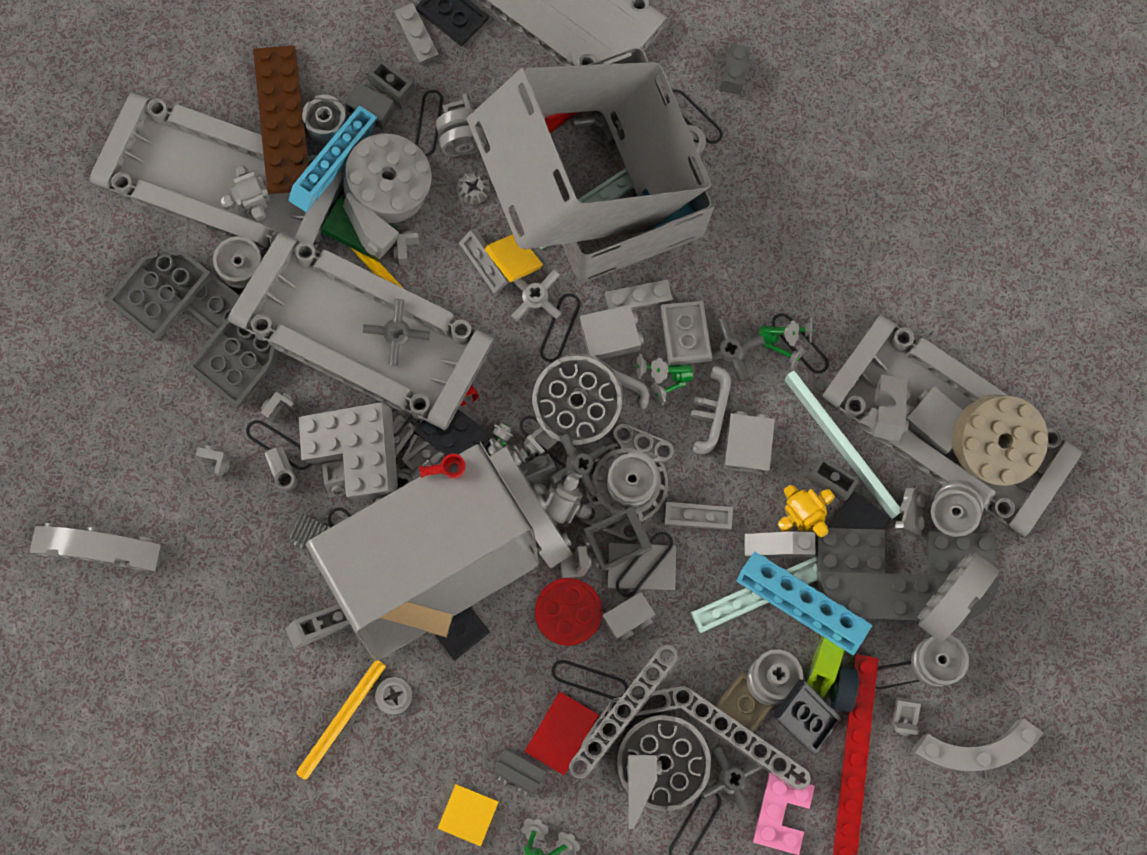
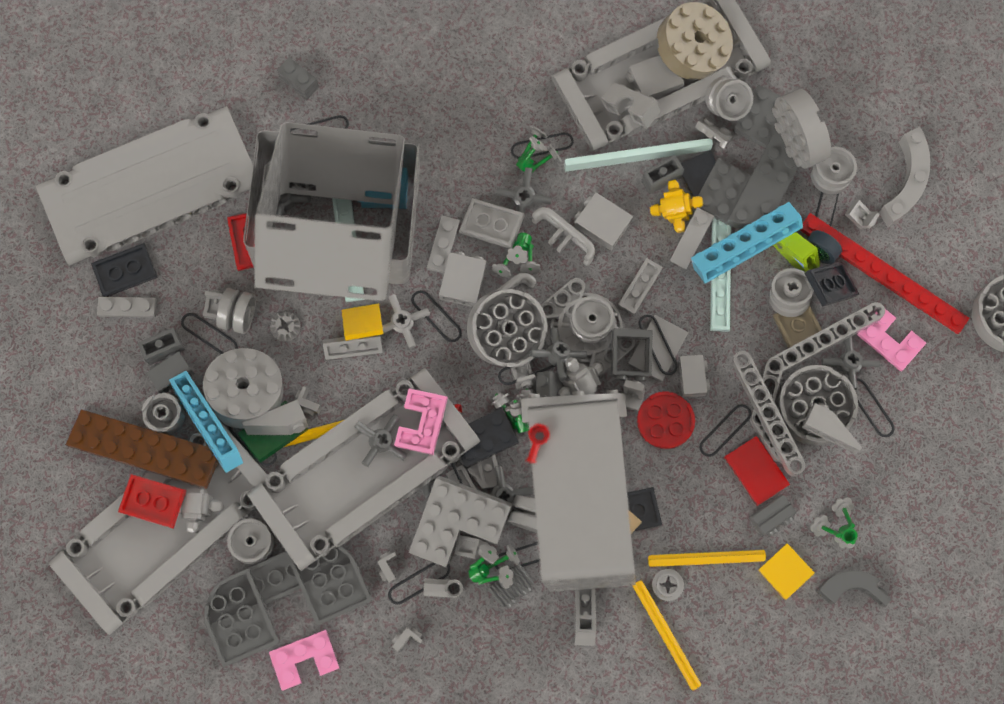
camera: 60 degrees left, 0 degrees up
(145, 355) = (291, 654): none -> bright pink plate
(232, 151) = (152, 501): none -> red tile
(317, 496) = (479, 572): none -> plant
(441, 724) = (707, 558): none -> yellow axle
(450, 366) = (426, 437): none -> bright pink plate

